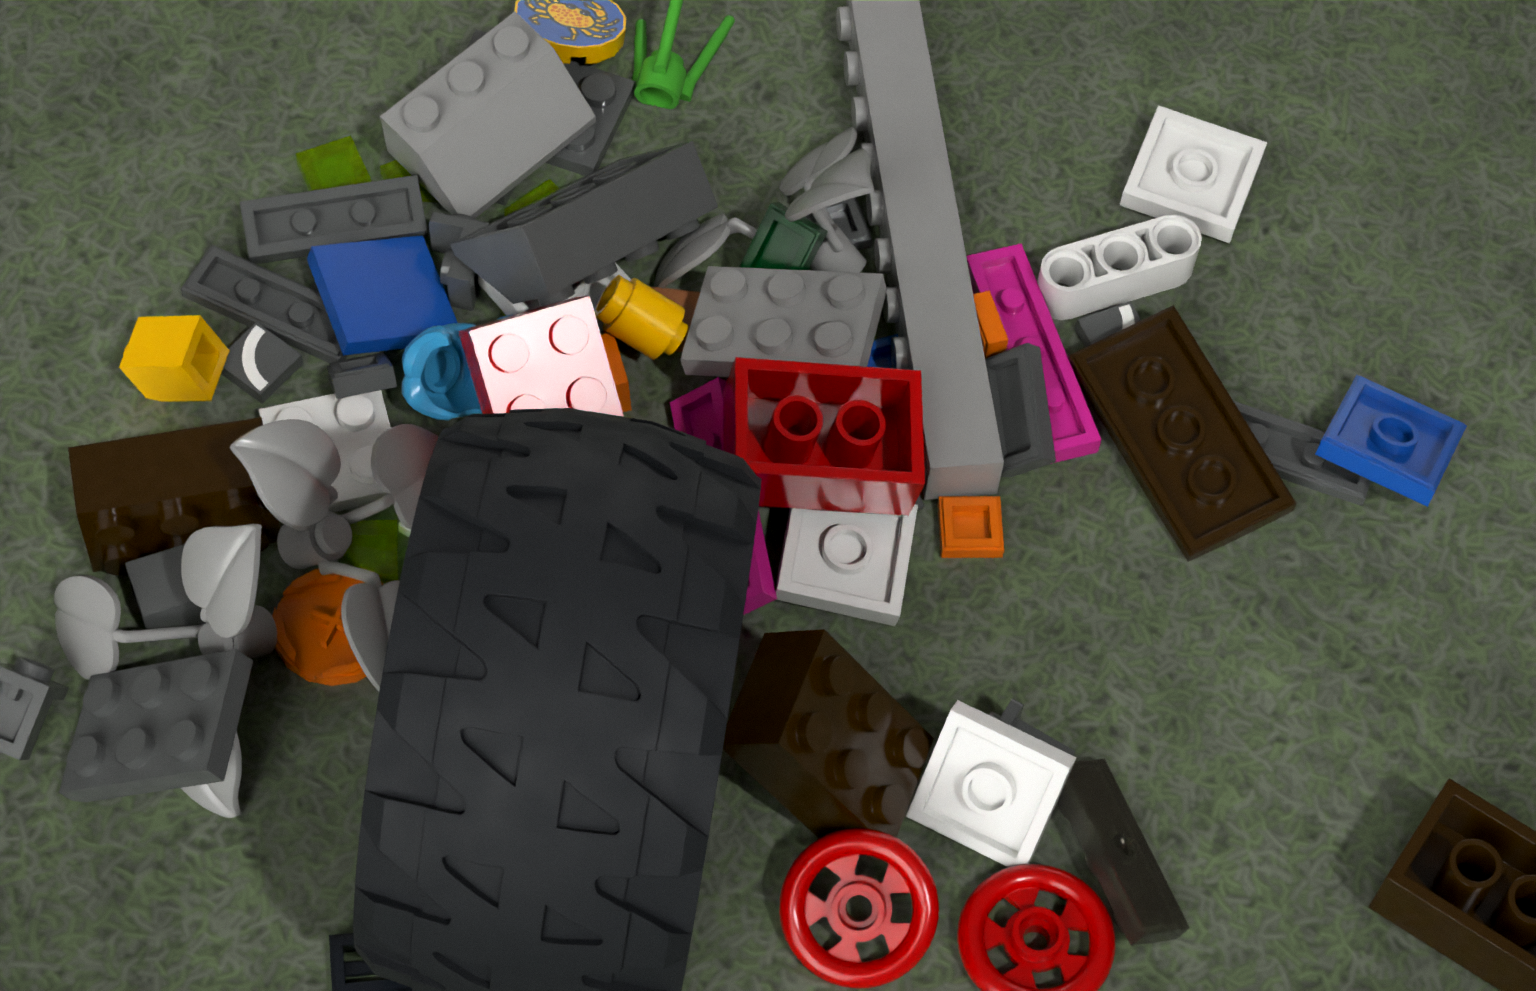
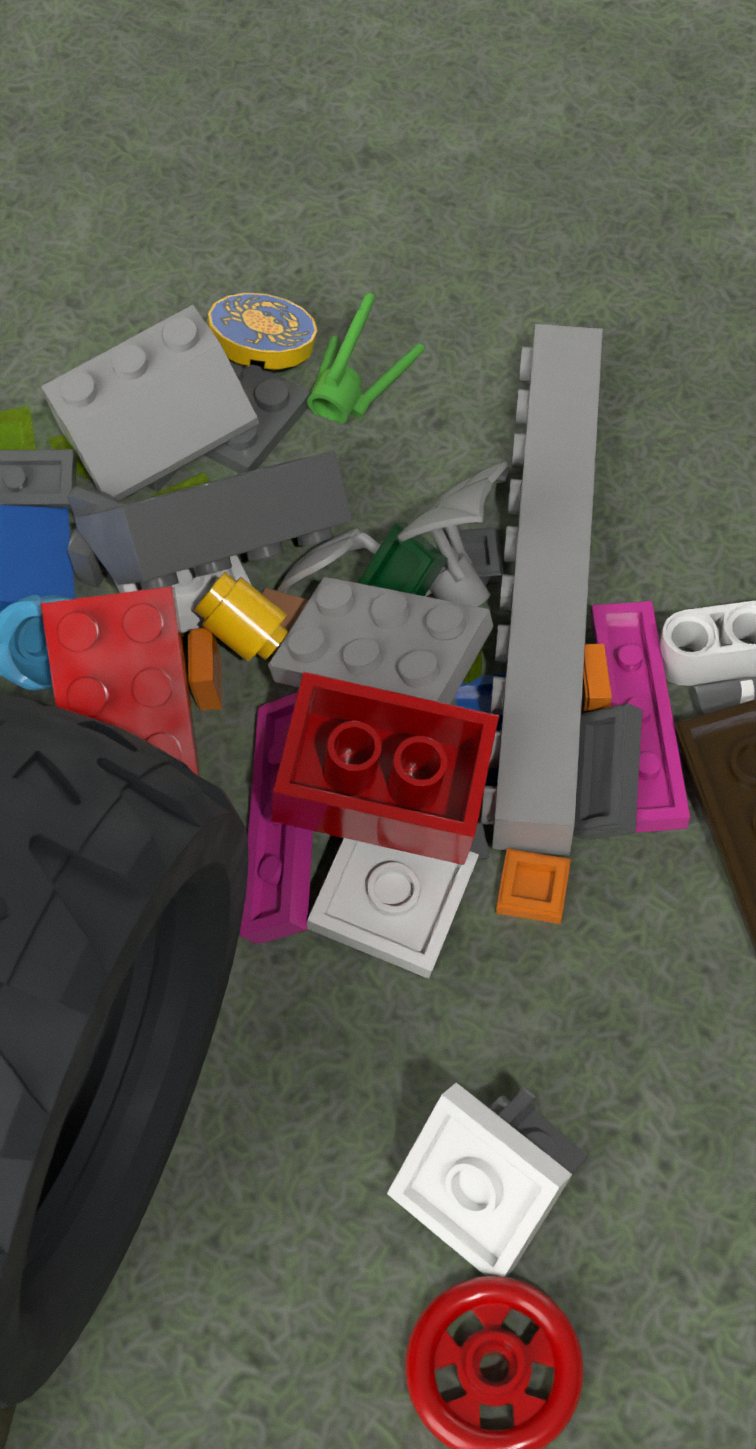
camera: 20 degrees right, 0 degrees up
(825, 736) = (303, 1101): dark brown brick -> none
(905, 940) = (358, 1268): red plate -> none
(1120, 855) = (608, 1289): clear smoke tile -> none

